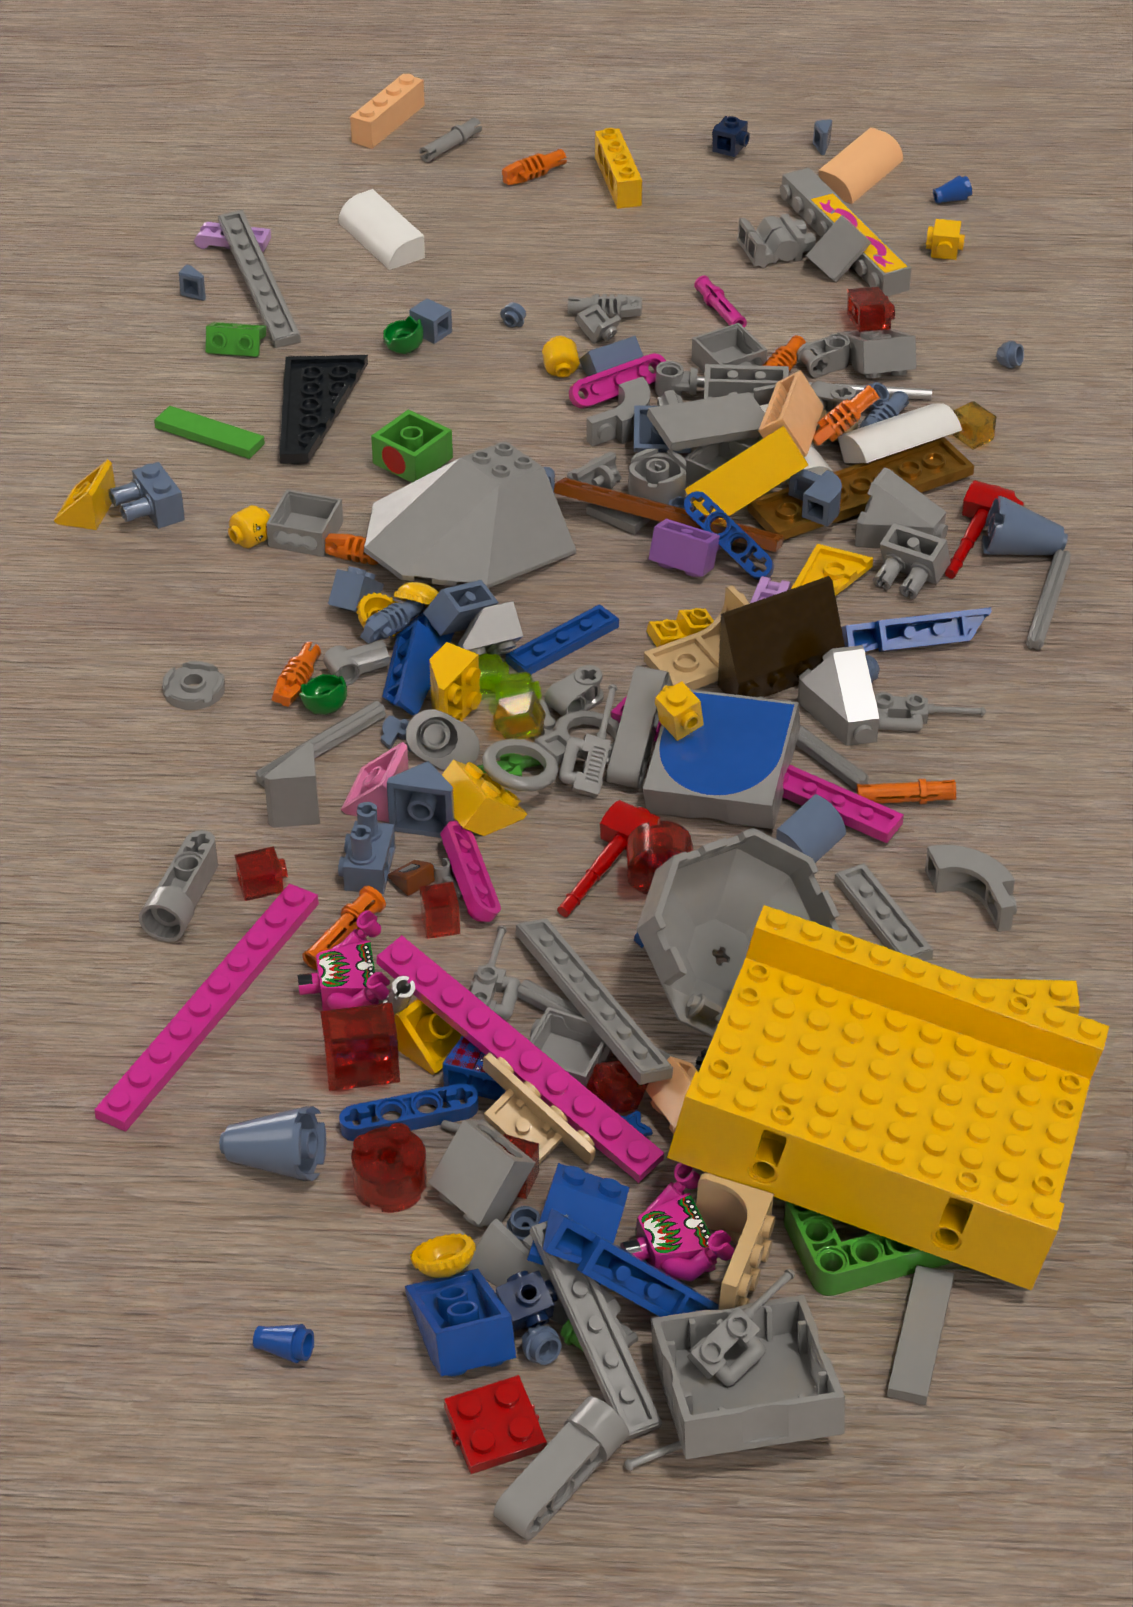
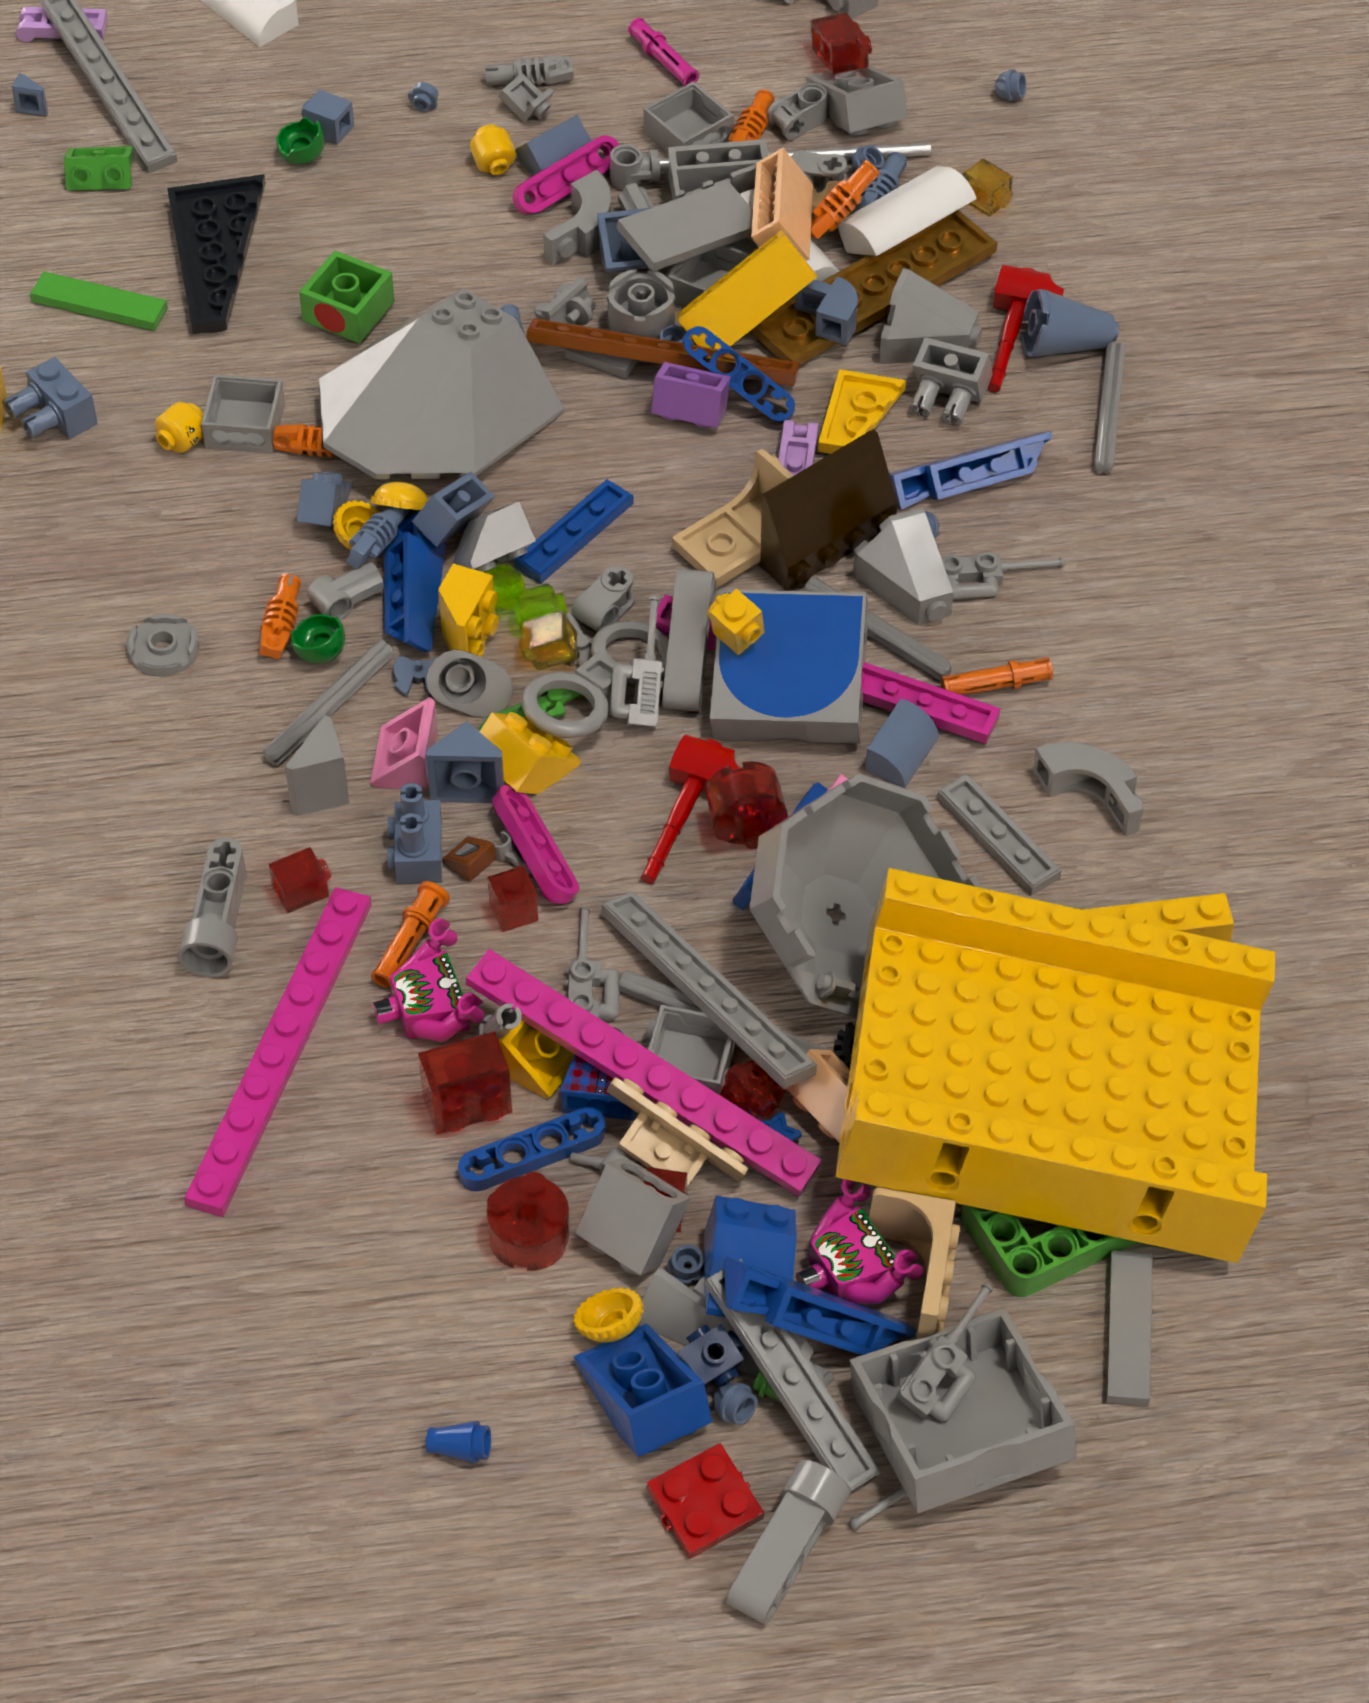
camera: 10 degrees left, 10 degrees up
(278, 1143) = (399, 1211): sand blue cone -> none
(686, 624) = (710, 495): yellow slope -> none

